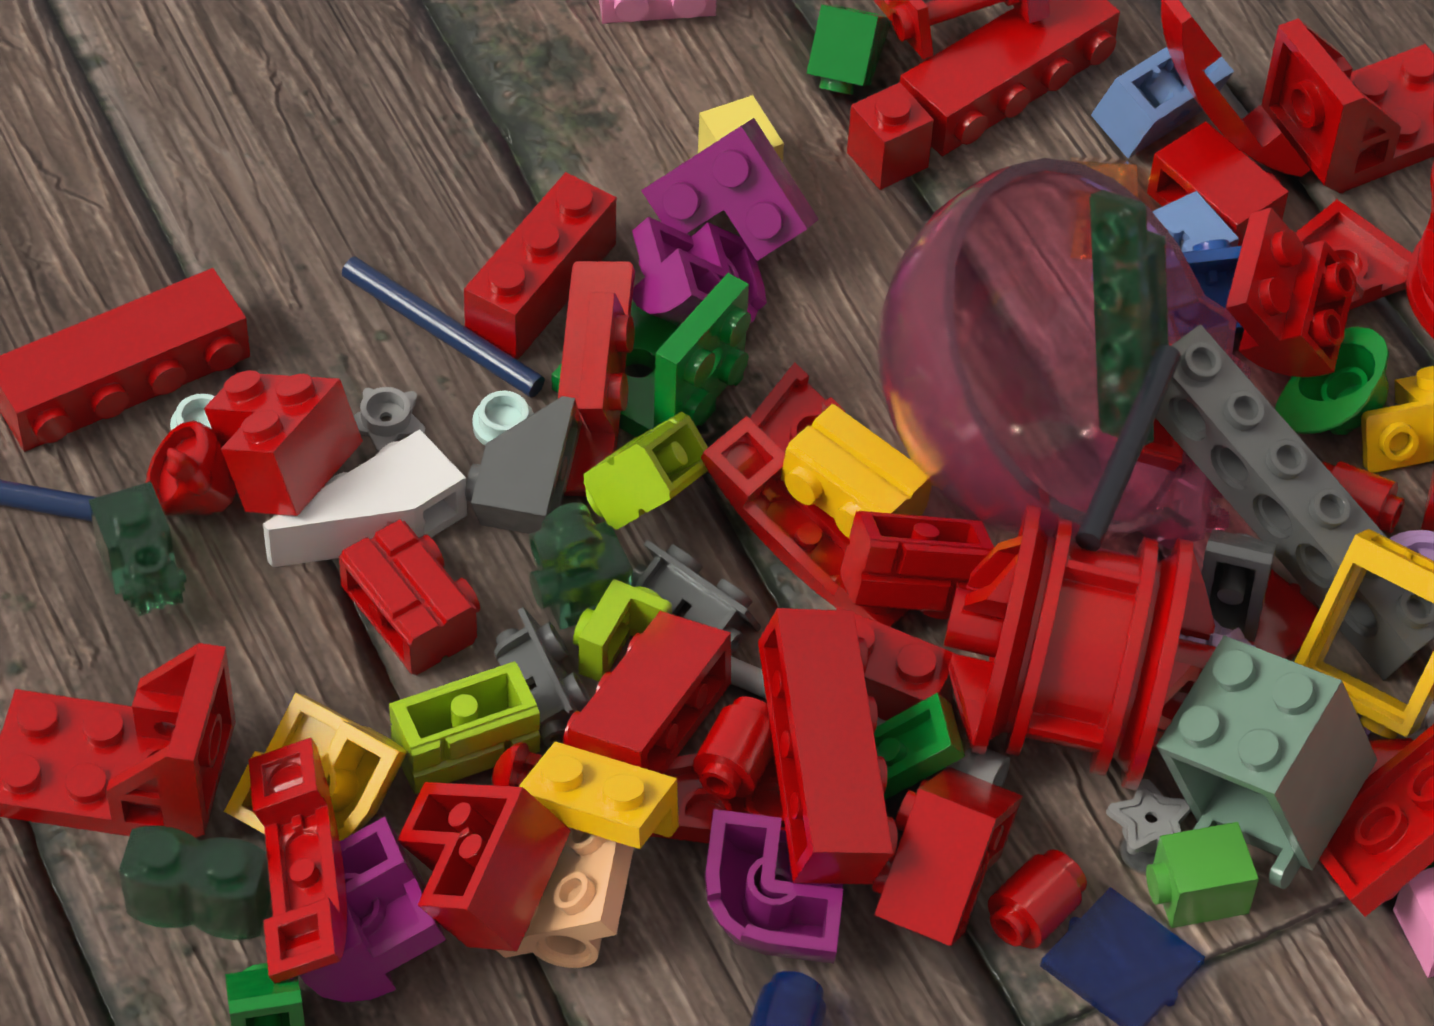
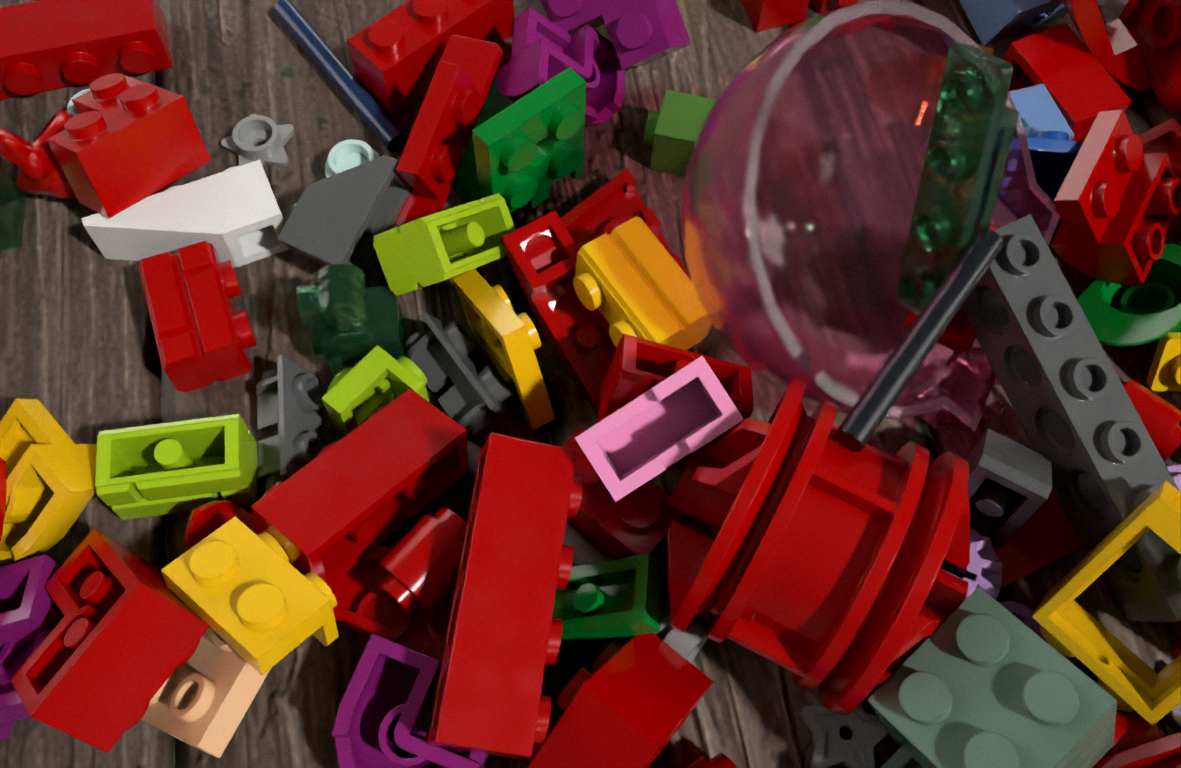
camera: 15 degrees right, 10 degrees up
(729, 548) = (507, 341): none -> yellow wing
(843, 316) = (675, 130): none -> bright green brick
(919, 575) = (659, 428): none -> bright pink brick

